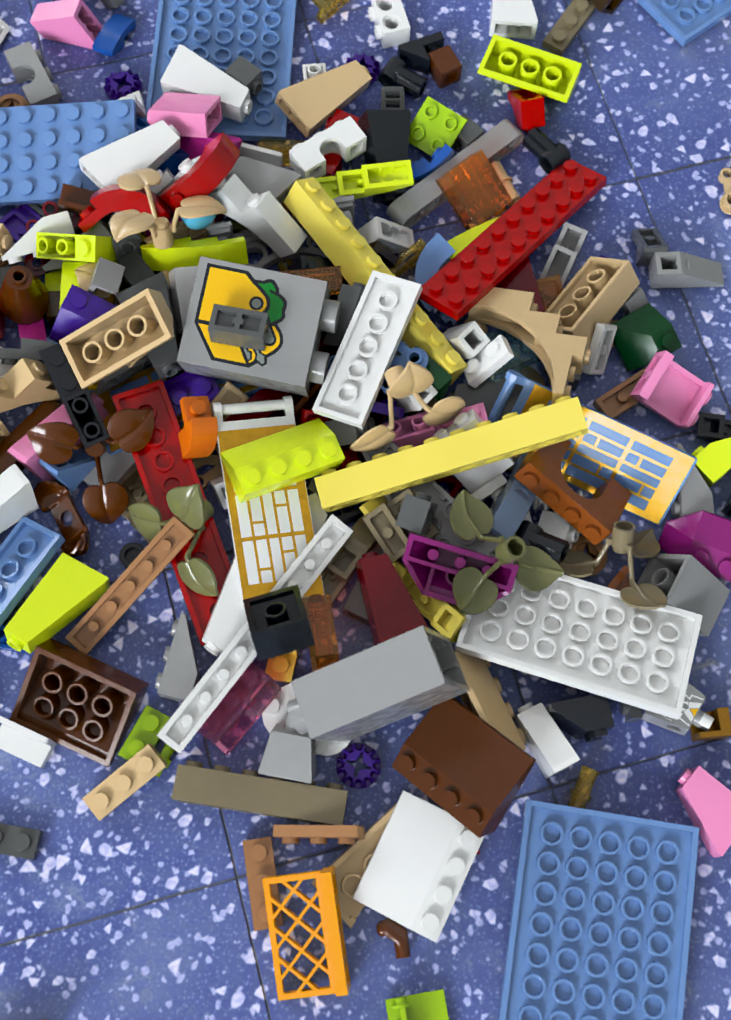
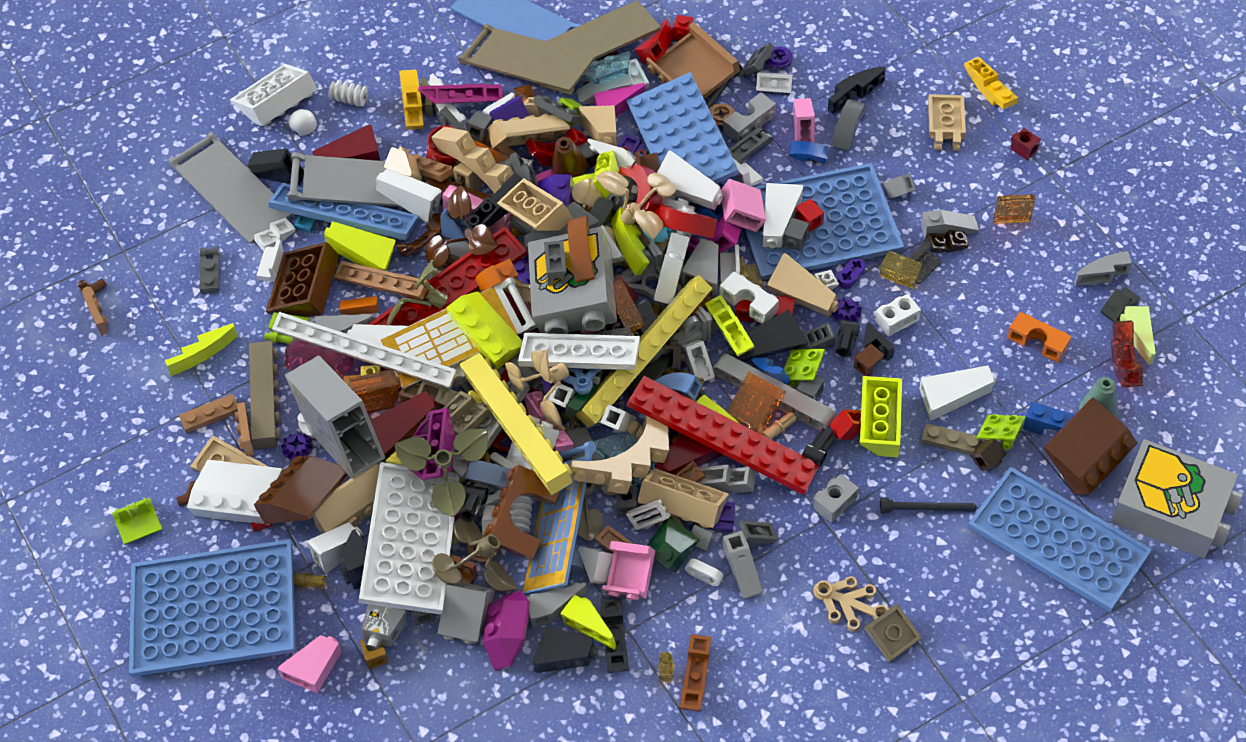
camera: 80 degrees right, 15 degrees down
(72, 85) = (750, 144): none -> dark grey plate
(106, 276) = (584, 192): light grey panel -> none
(112, 88) = (775, 174): dark purple gear -> none
(125, 781) = (254, 319): tan plate -> none
(144, 864) = (208, 345): none -> neon yellow slope
(147, 631) = (359, 306): none -> orange slope
(220, 52) = (810, 213): none -> red brick
(226, 287) = (580, 249): none -> dark orange slope
(278, 622) = (366, 352): black slope -> none
(289, 754) = (285, 404): light grey torso -> none
(314, 45) = (848, 271): none -> dark purple beam
(332, 935) = (185, 450): light orange fence -> none
(417, 513) = (466, 414): dark grey brick -> none
(488, 361) = (602, 434): white plate -> none
(619, 154) = (833, 507): none -> light grey brick
(640, 109) = (888, 506): none -> black piece
(646, 421) = (596, 564): none -> white slope
(685, 312) = (704, 572): none -> white beam

